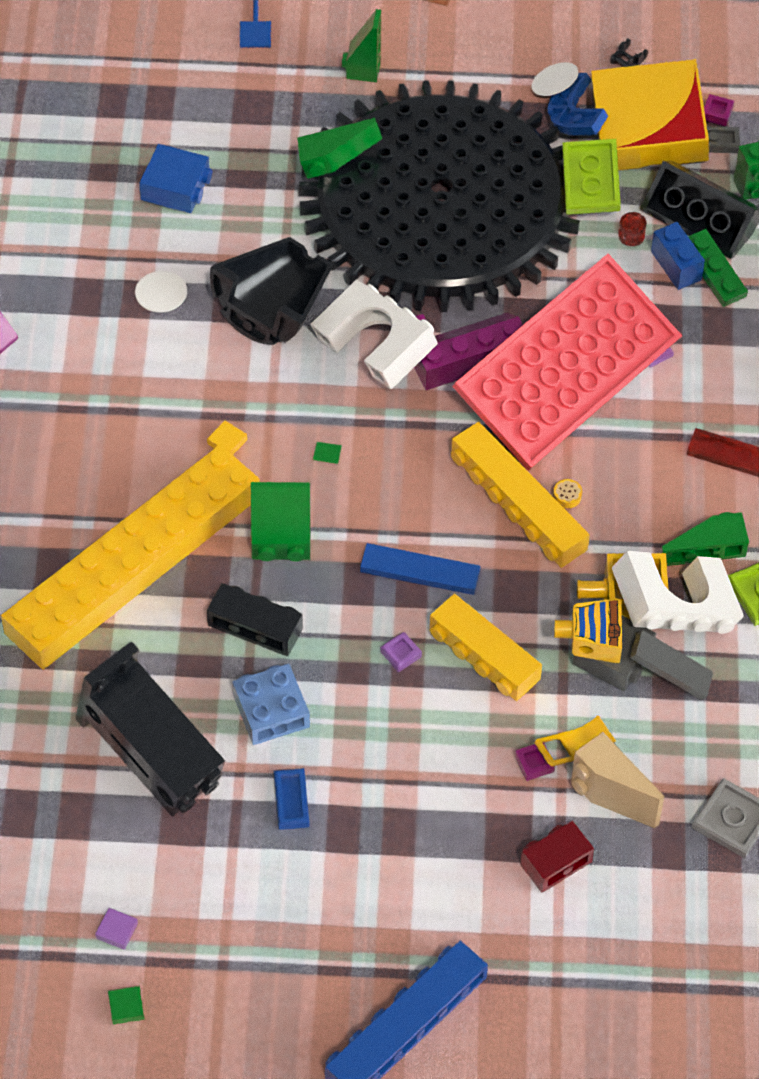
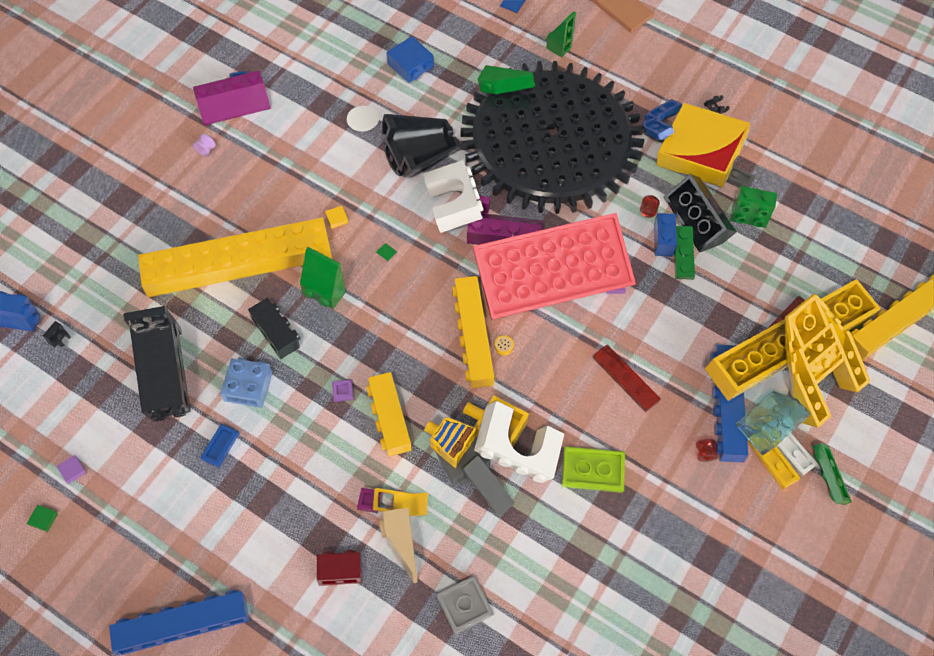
camera: 30 degrees right, 5 degrees up
(420, 569) = (388, 347): blue tile -> none
(555, 79) = (662, 99): white sticker -> none
(591, 176) = (641, 163): lime tile -> none
(717, 537) = (567, 418): green slope -> none
(718, 109) = (748, 160): magenta plate -> none

